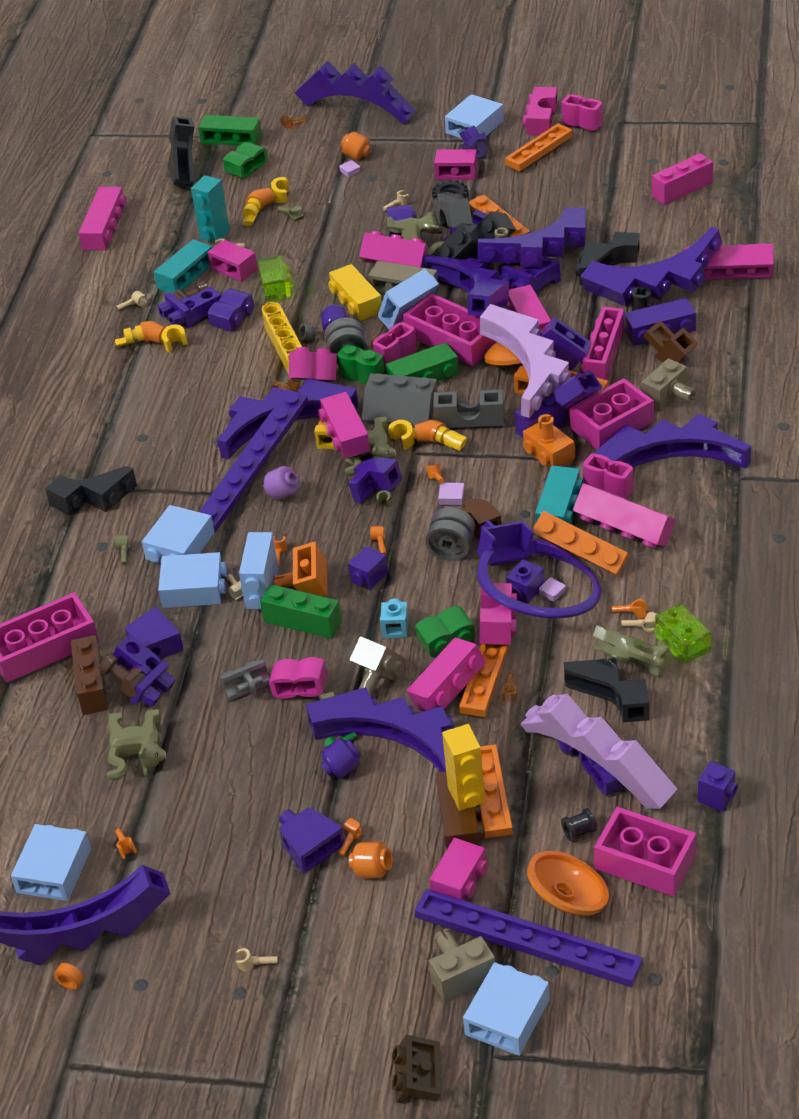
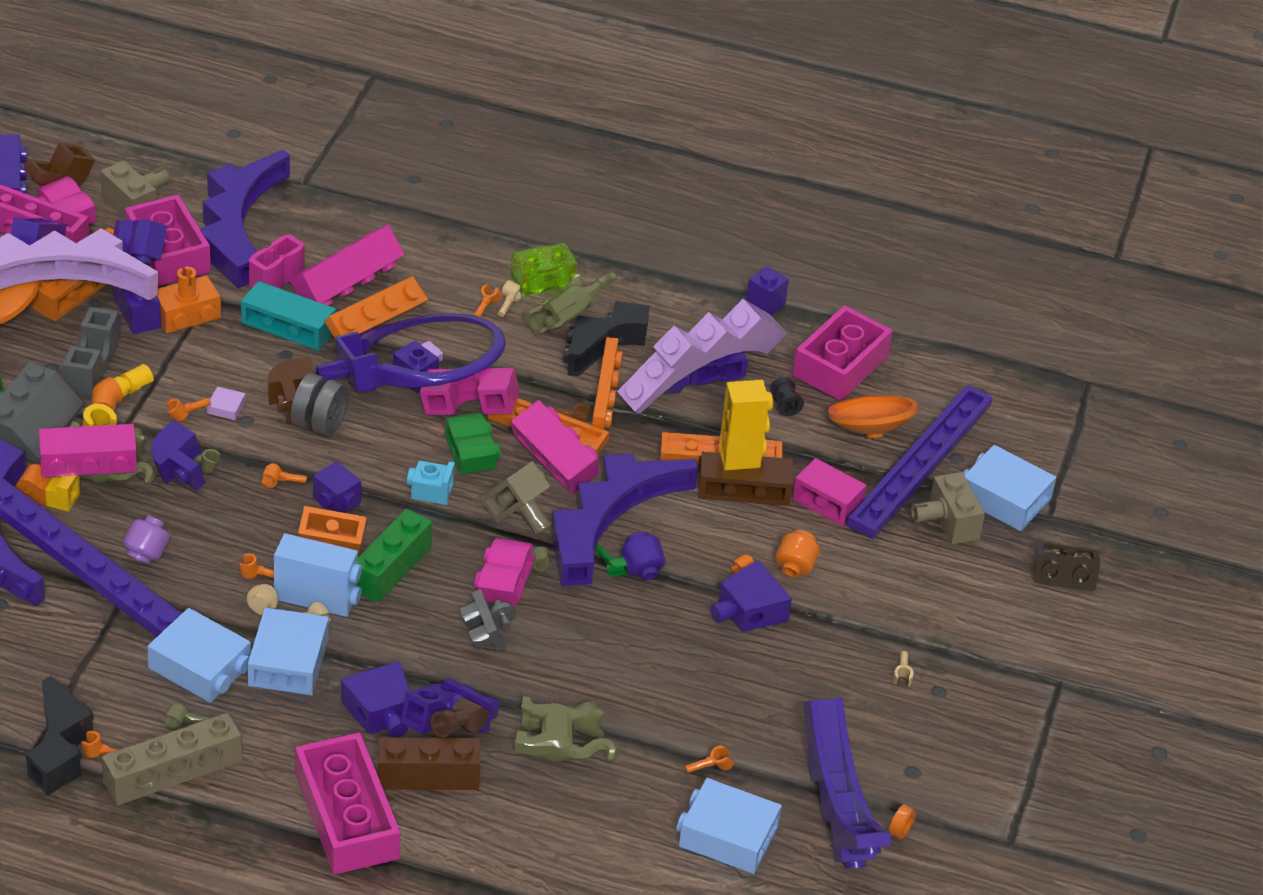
camera: 90 degrees left, 0 degrees up
(75, 546) = (172, 759): none -> dark tan brick
(90, 514) = (95, 746): none -> orange hand
(238, 555) = (261, 597): none -> tan plate
(522, 699) = (608, 379): none -> orange plate
(637, 360) = (69, 196): none -> dark pink brick

